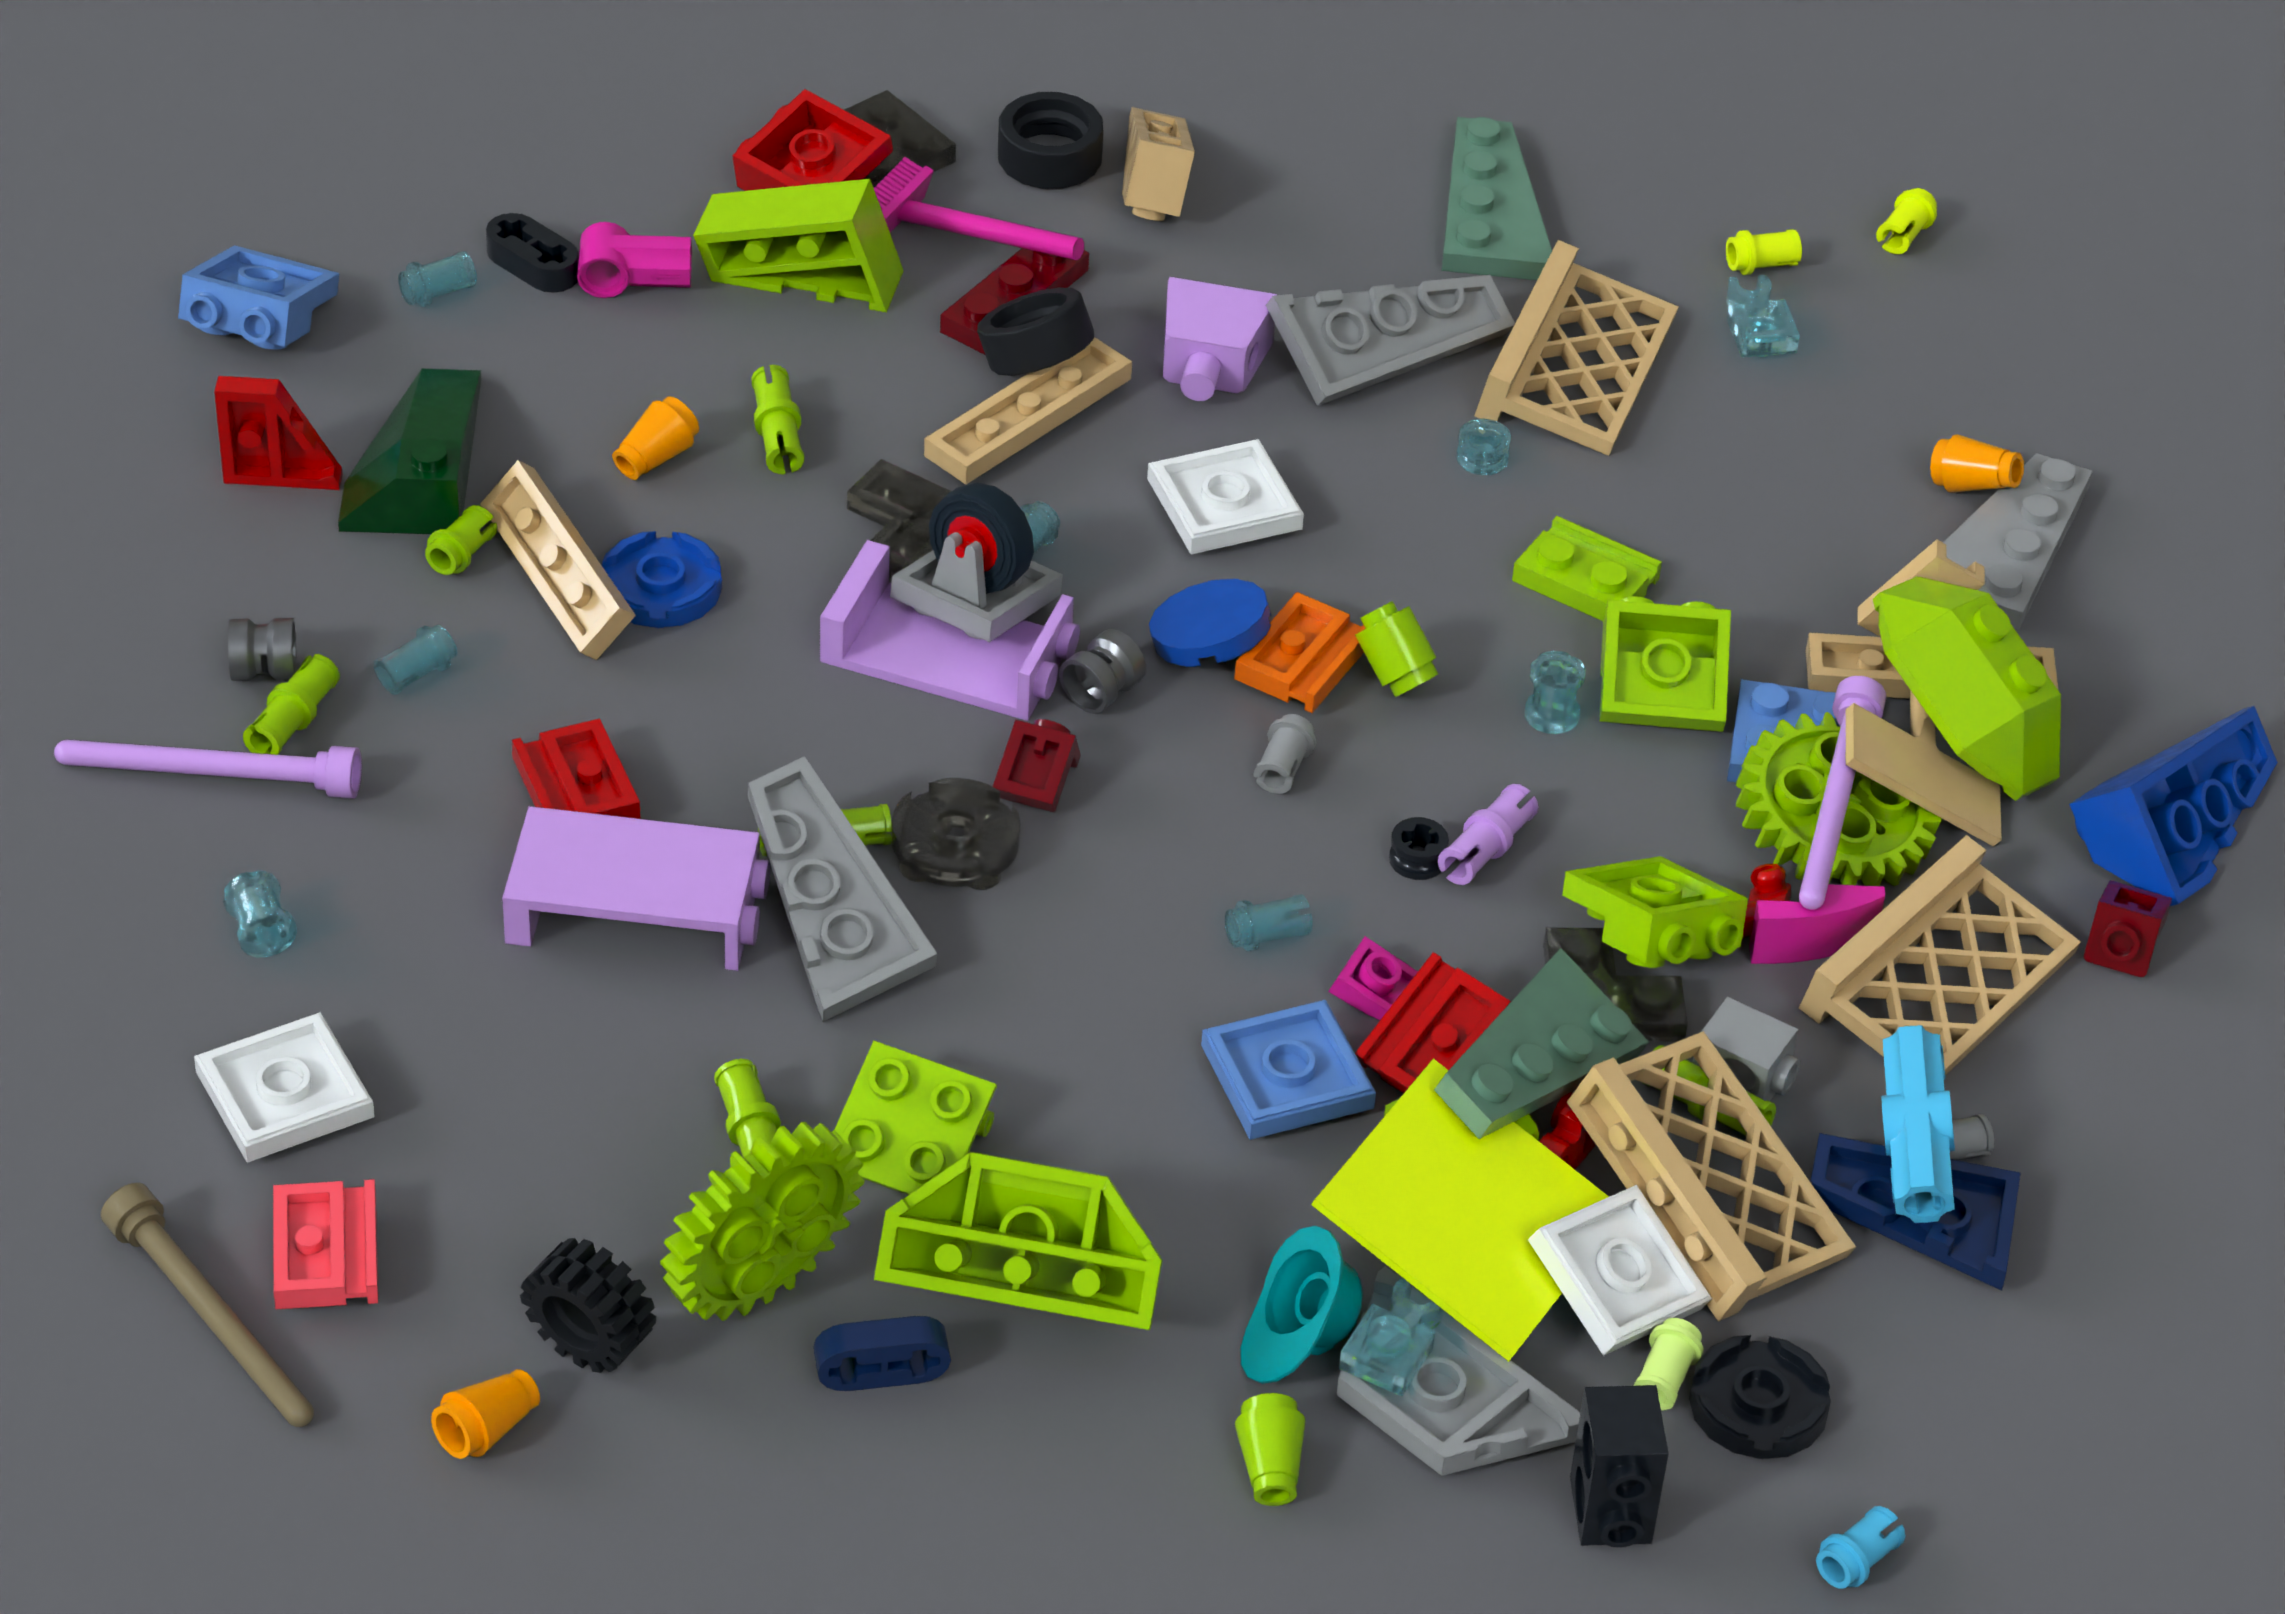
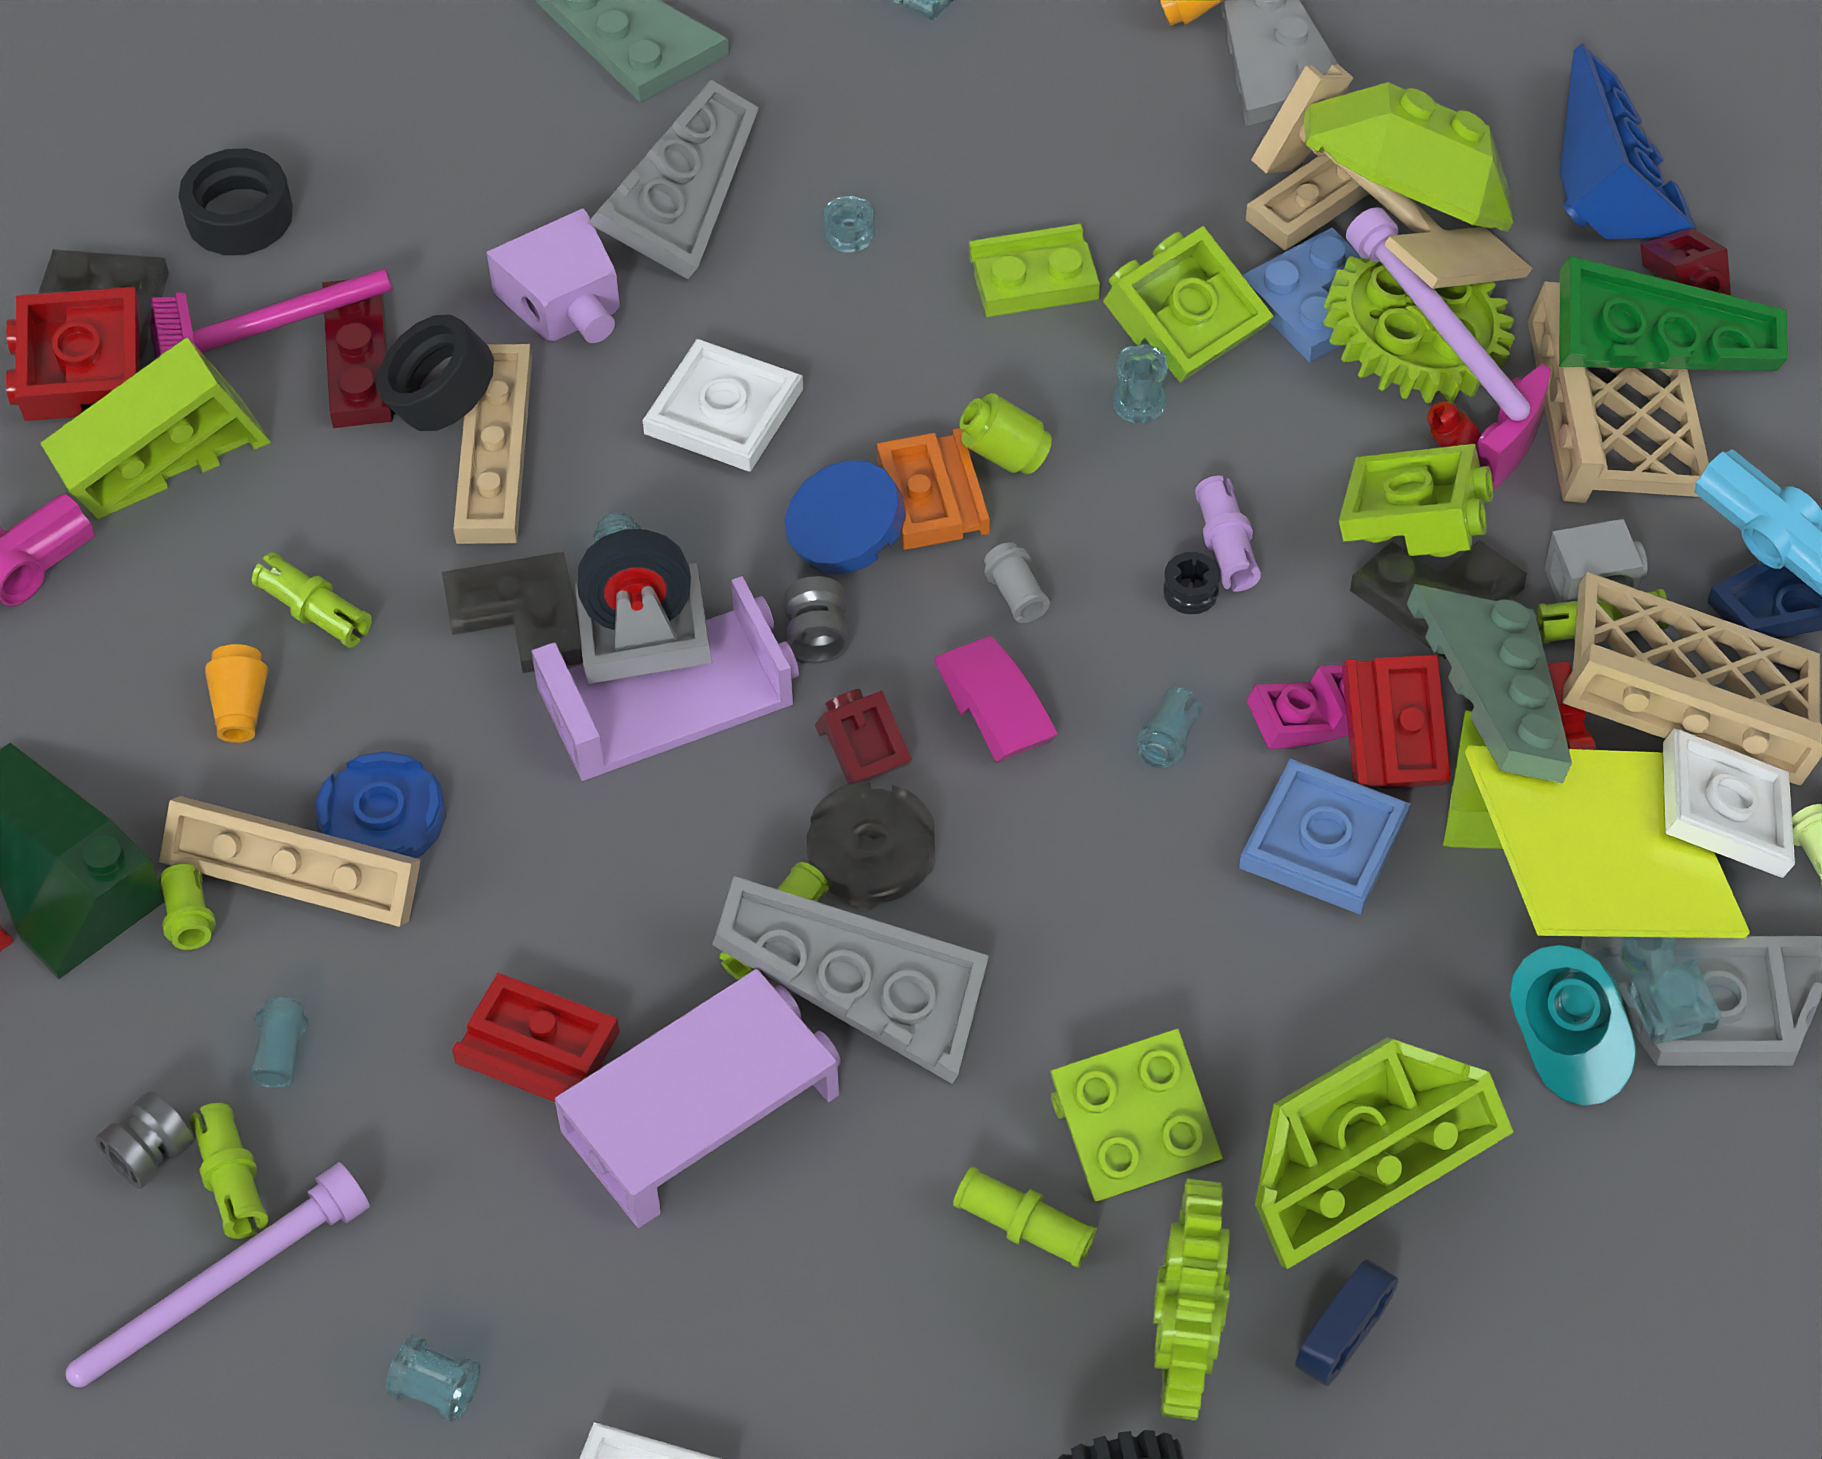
camera: 40 degrees left, 10 degrees up
(1156, 164) = (345, 161): tan slope -> none
(1164, 811) = (998, 696): none -> dark pink slope
(1271, 1445) = (1679, 1148): lime cone -> none
(1541, 322) = (786, 108): tan fence -> none
(2022, 925) = (1654, 323): none -> green wing

